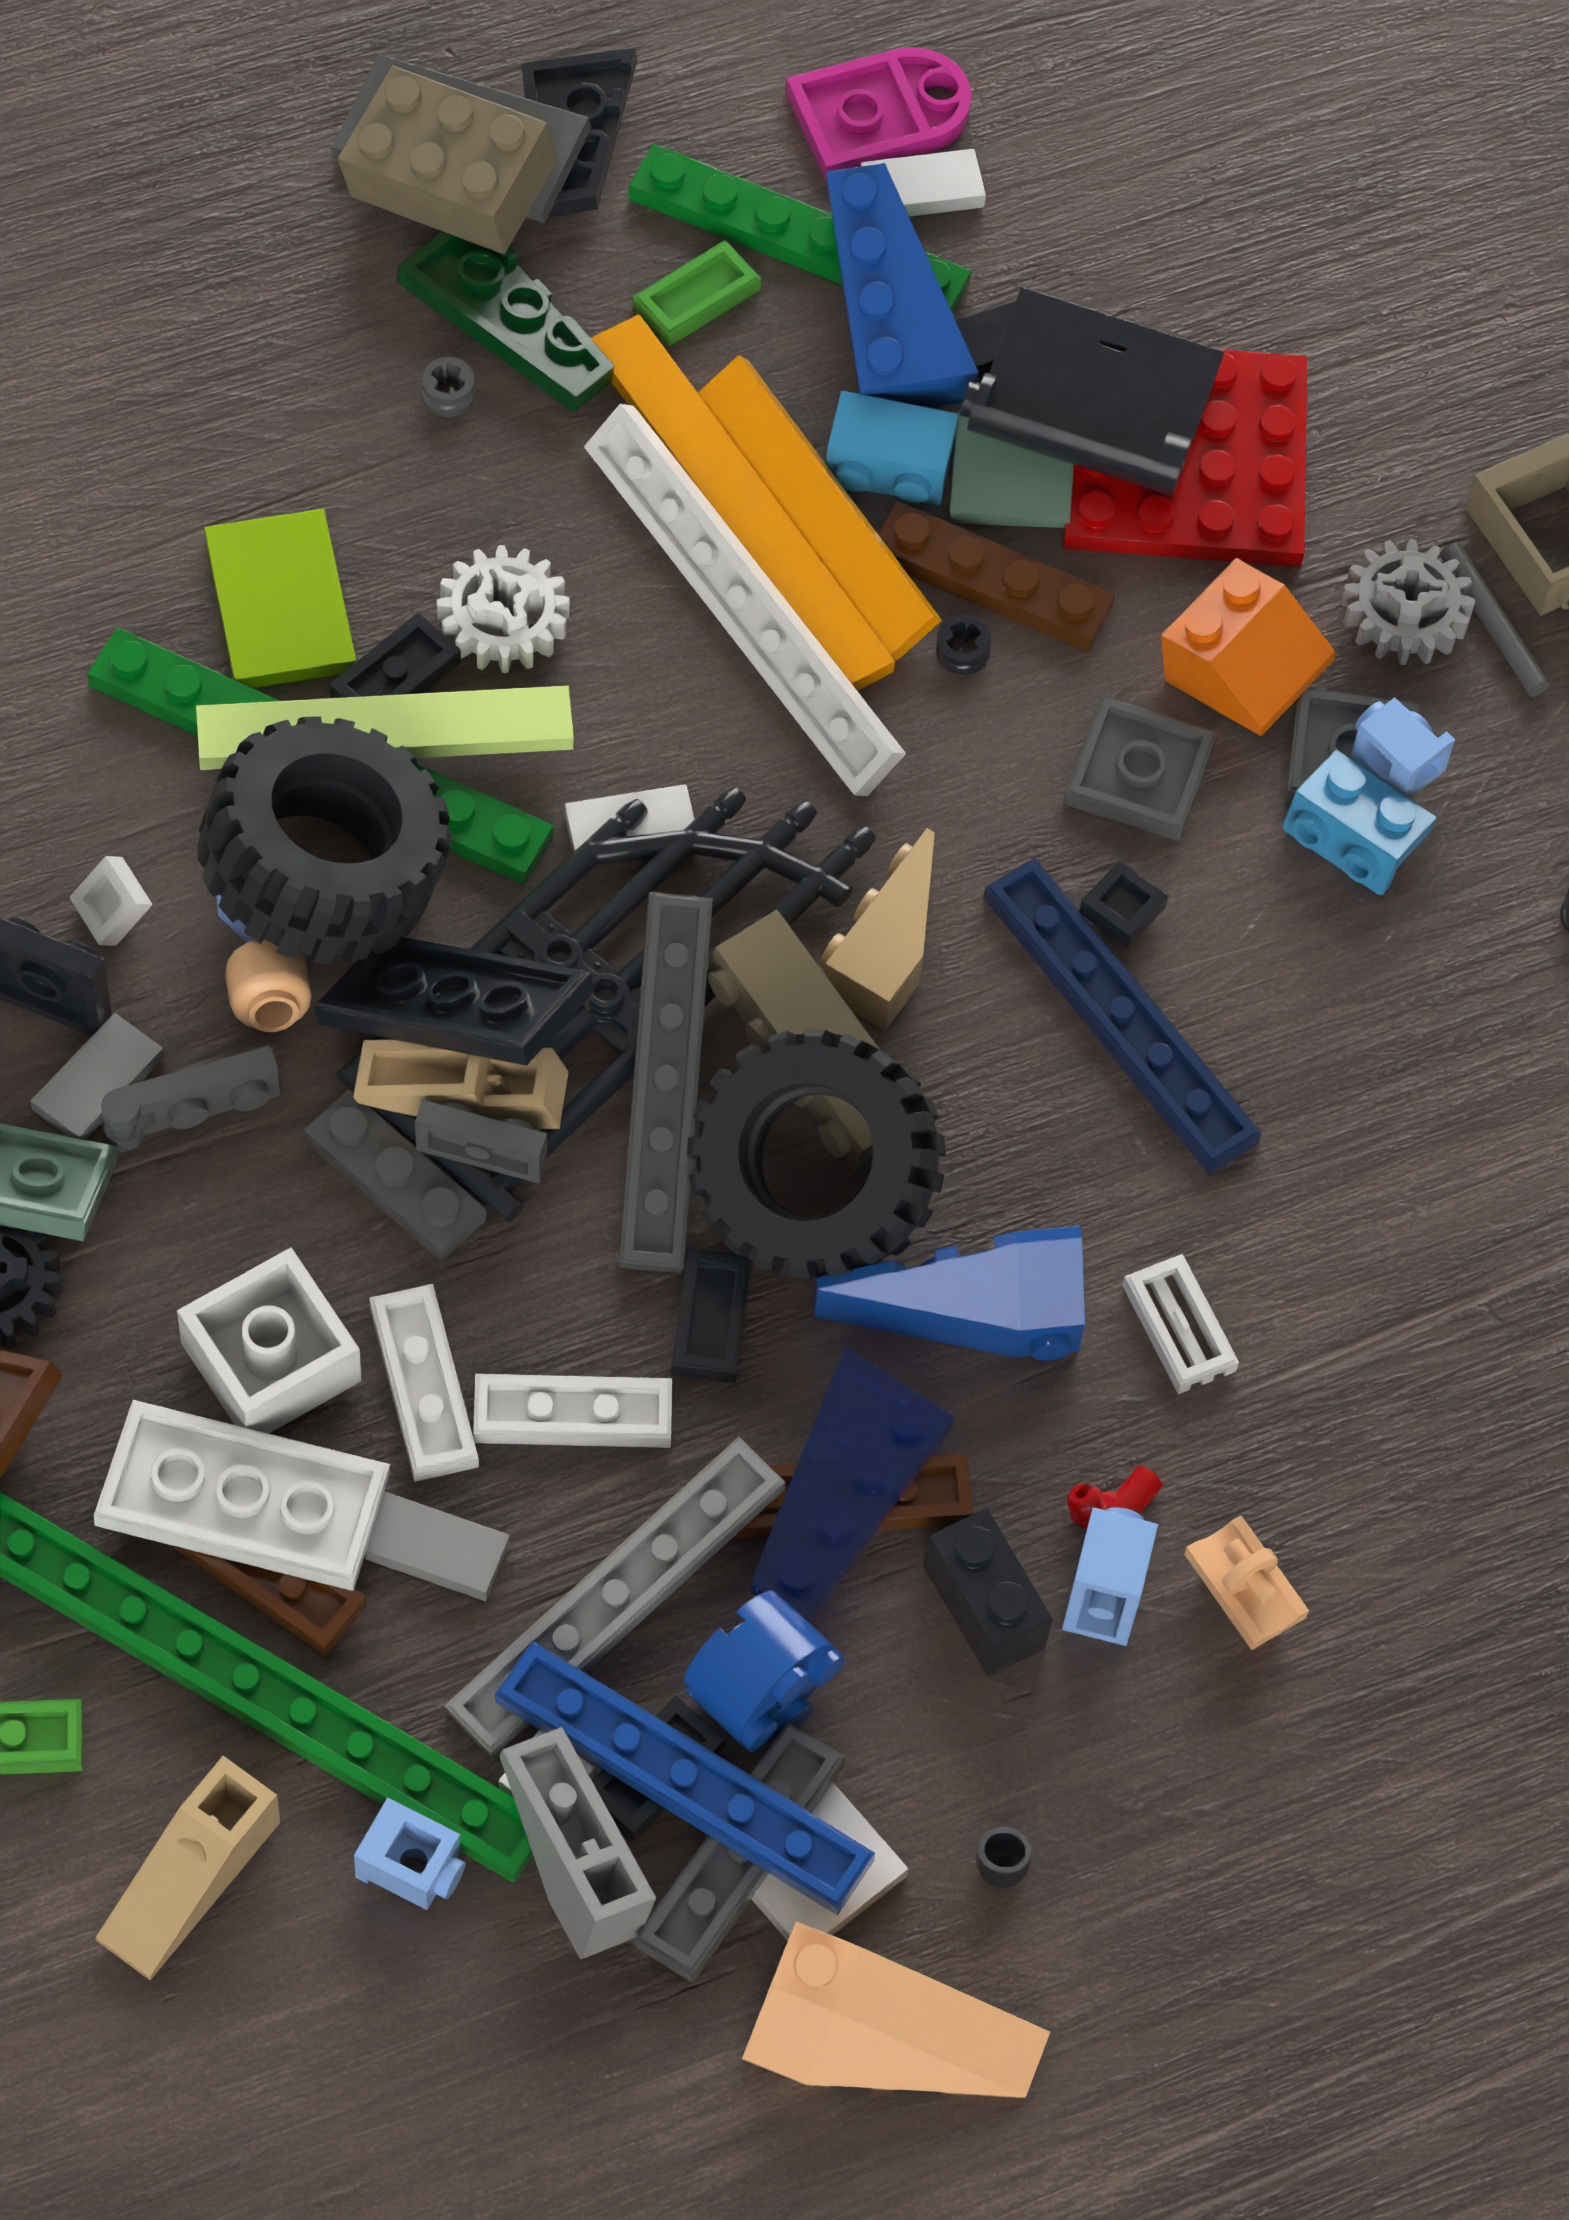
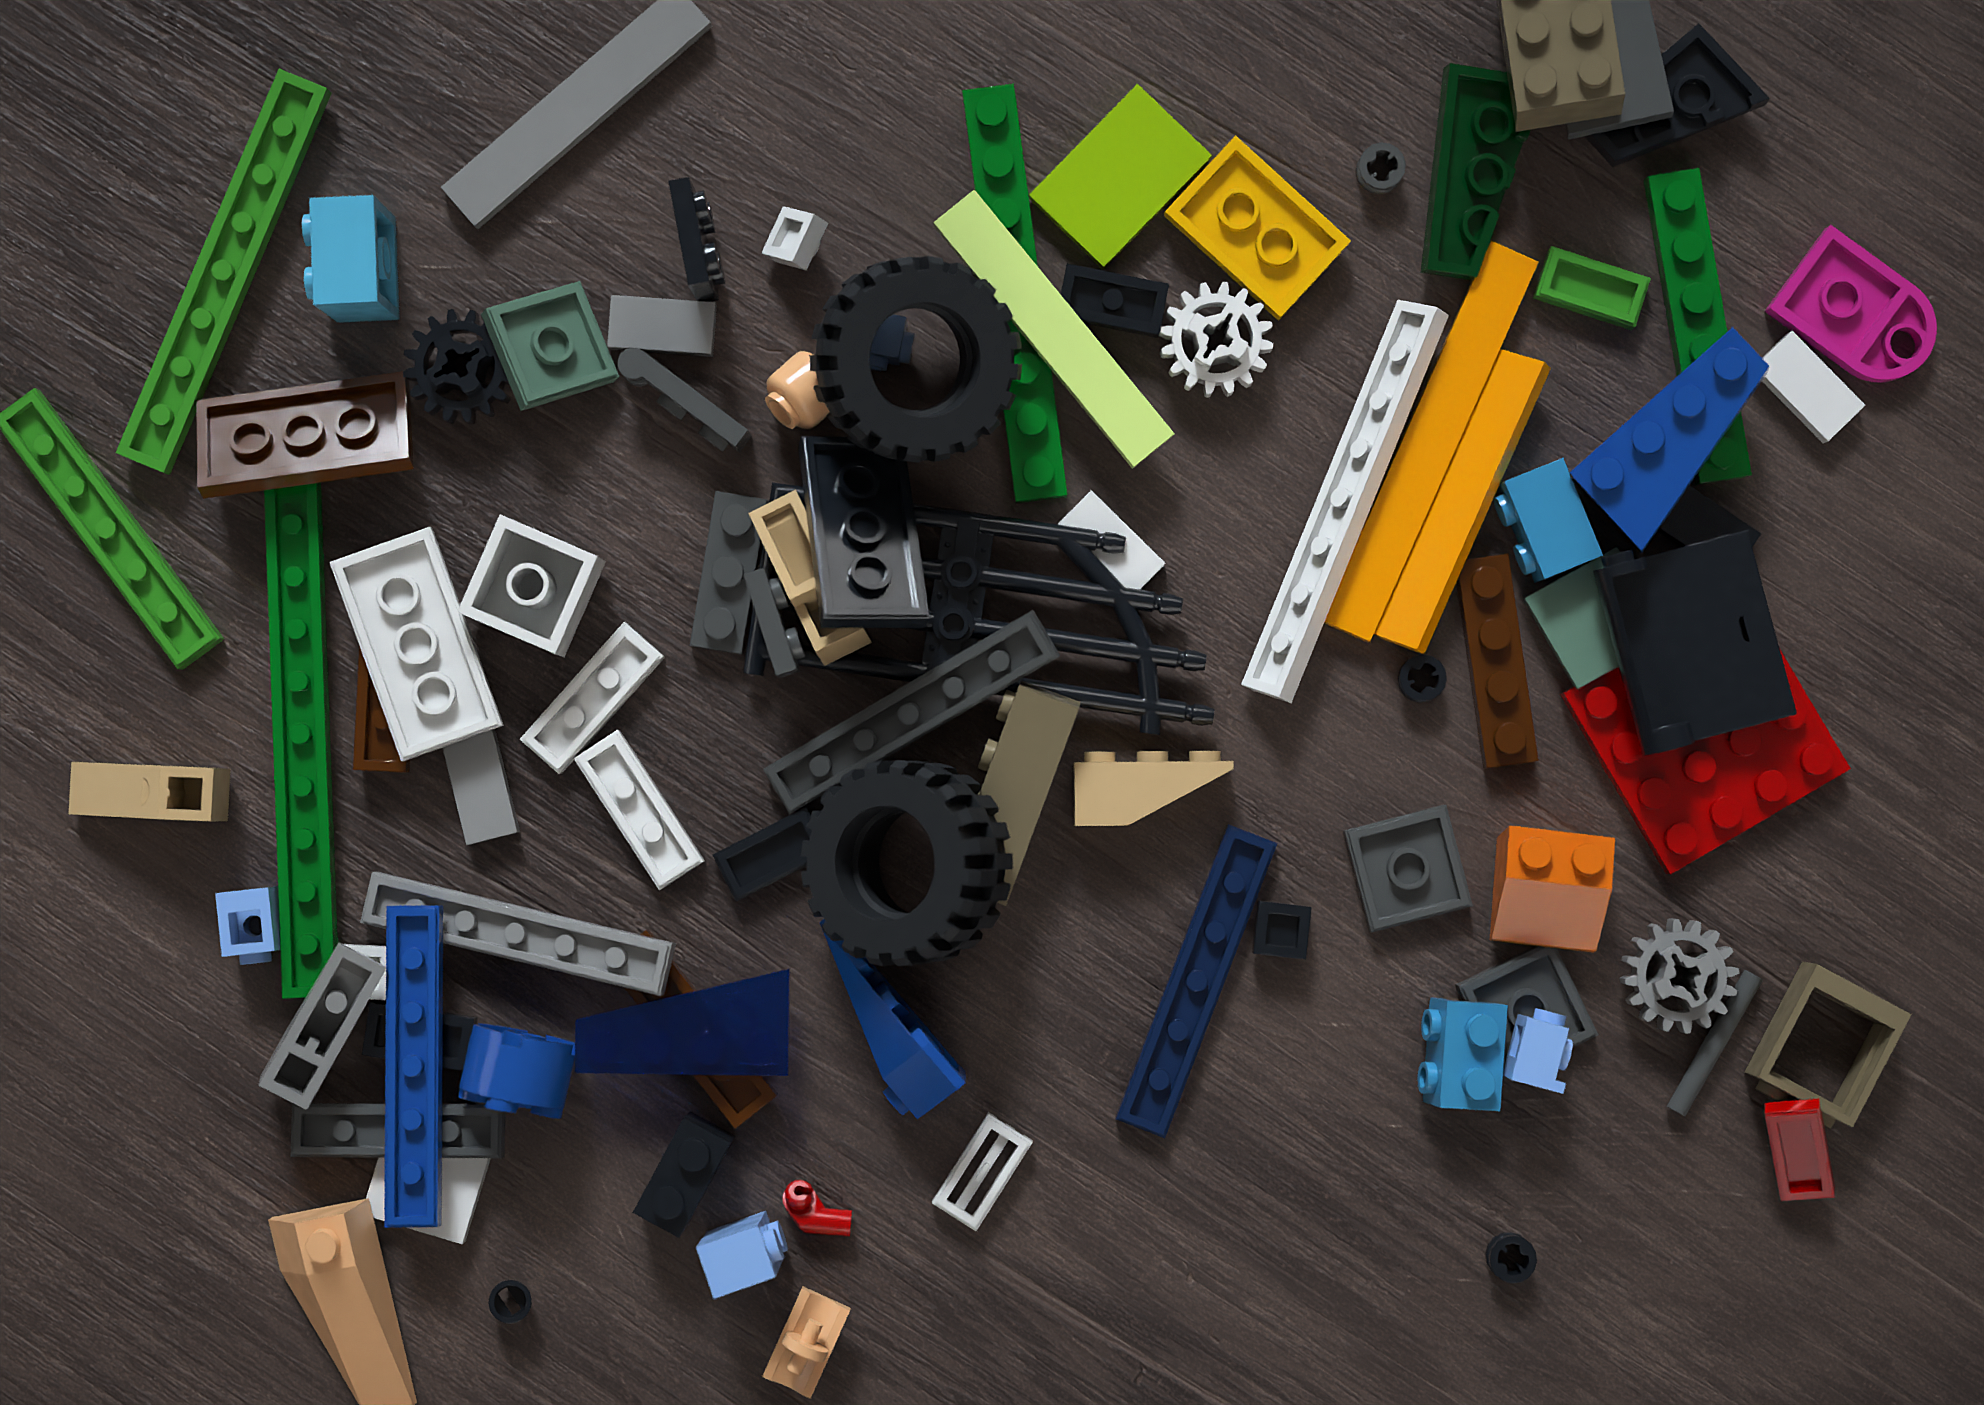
camera: 60 degrees right, 25 degrees up
(422, 513) = (1257, 227): none -> yellow plate

